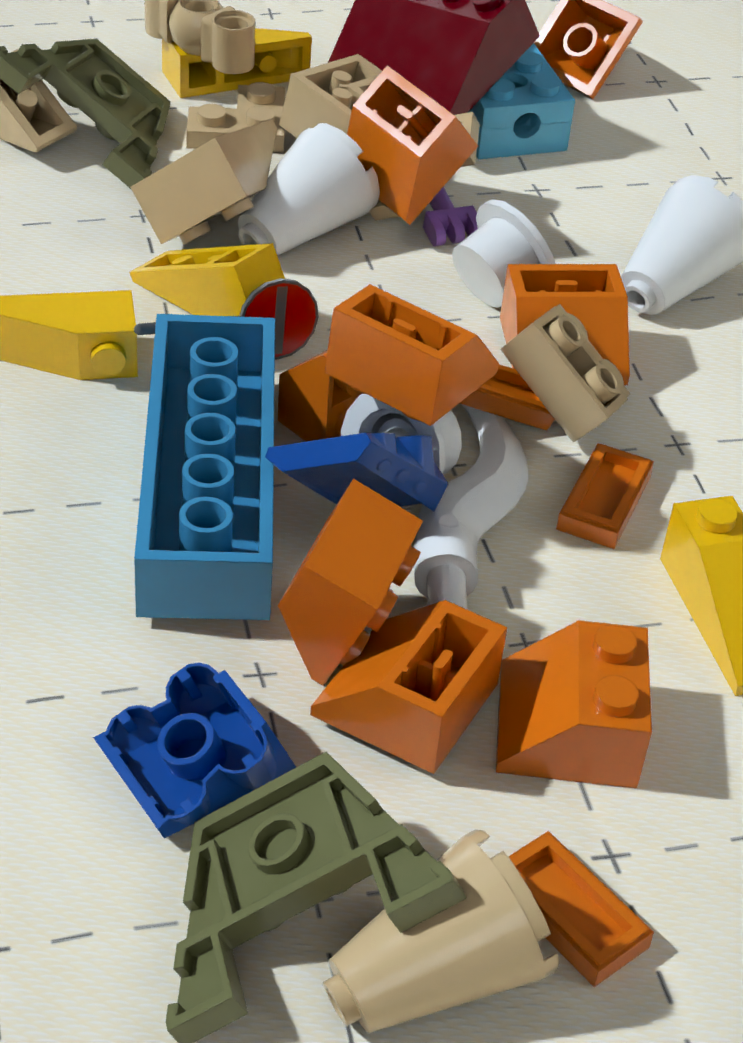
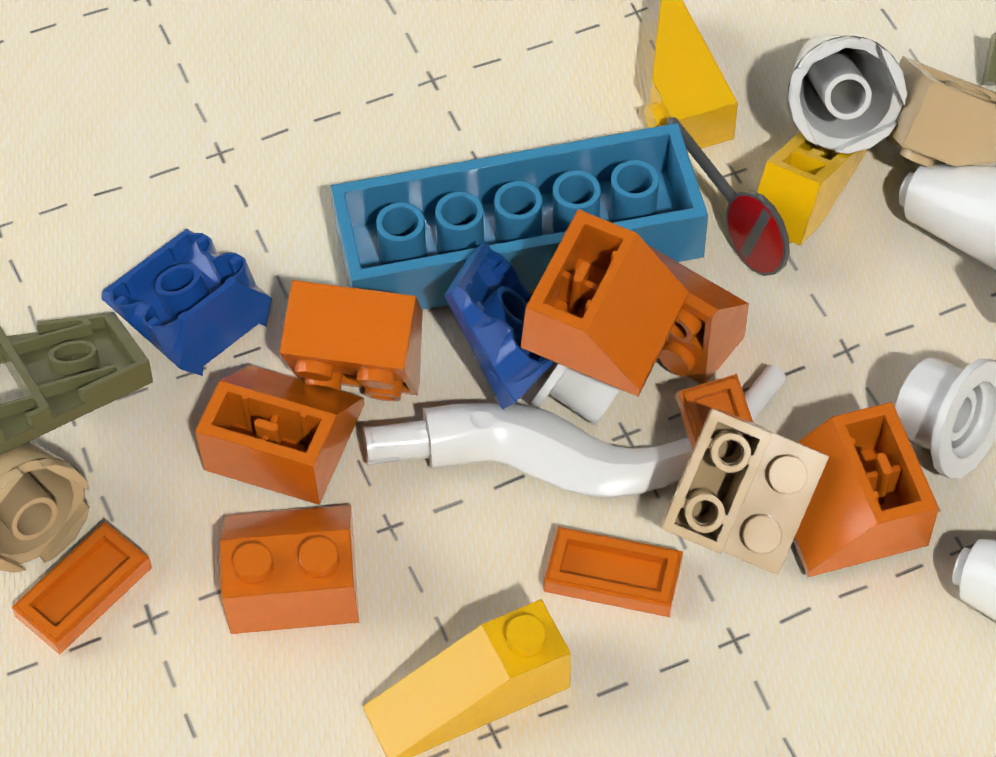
camera: 85 degrees right, 15 degrees up
(146, 222) = (845, 92): none -> white cone

